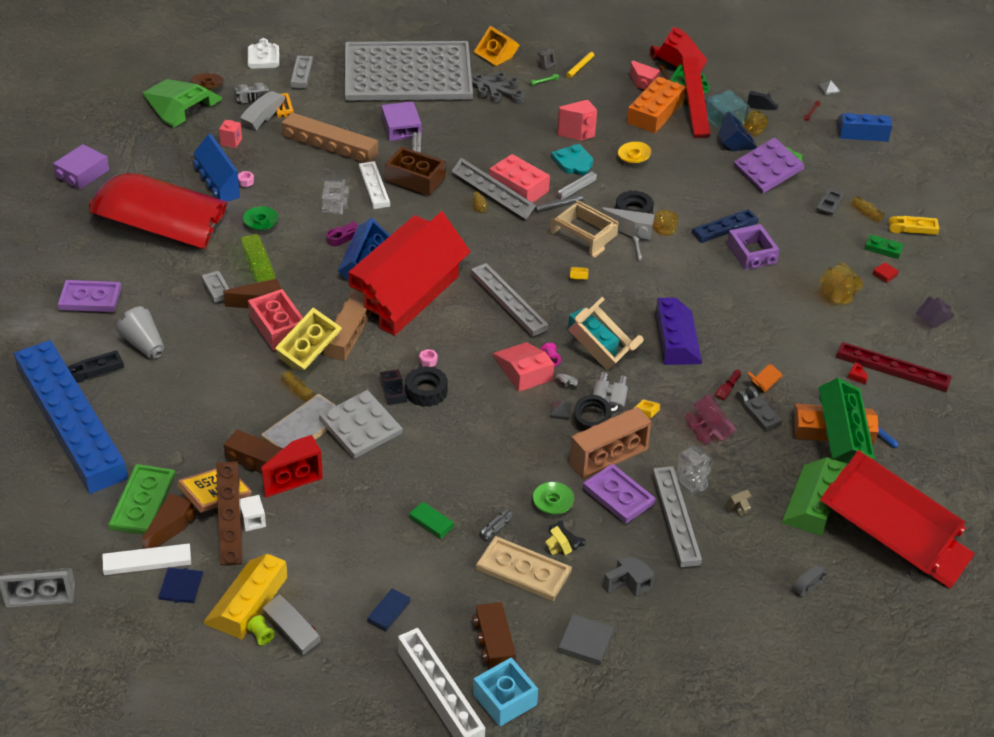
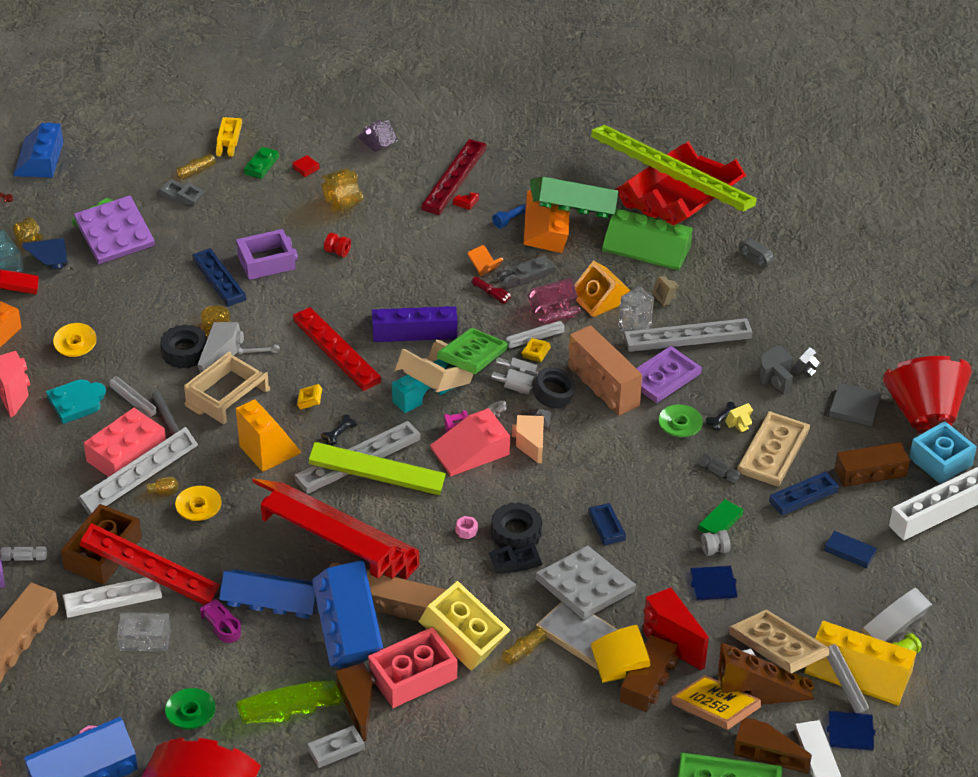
camera: 90 degrees left, 0 degrees up
(225, 577) = (846, 679): none -> light grey axle
(271, 533) = (779, 641): none -> tan tile
(272, 433) = (620, 652): none -> yellow slope
(319, 277) = (347, 614): none -> blue slope
(358, 510) = (713, 582): none -> clear blue piece
(387, 183) = (149, 564): none -> red plate
(398, 509) = (715, 543): none -> light grey wheel
(430, 445) = (607, 524): none -> dark blue tile
(459, 580) = (803, 493): none -> dark blue plate
(460, 216) = (198, 503): none -> yellow dish
(490, 306) = (377, 468): none -> lime tile
(523, 241) = (263, 437): none -> light orange slope
(530, 398) = (529, 435): none -> light nougat slope
(535, 287) = (332, 436): none -> black piece
(577, 680) = (928, 389): none -> red cone
(630, 359) = (472, 350): none -> bright green tile
(640, 601) = (807, 363): none -> flat silver tile
(644, 289) = (337, 348): none -> red plate
(669, 410) = (536, 333): none -> light grey axle
(735, 455) = (599, 289): none -> light orange slope
(772, 287) = (337, 244): none -> red wheel
(904, 499) = (674, 168): none -> lime plate

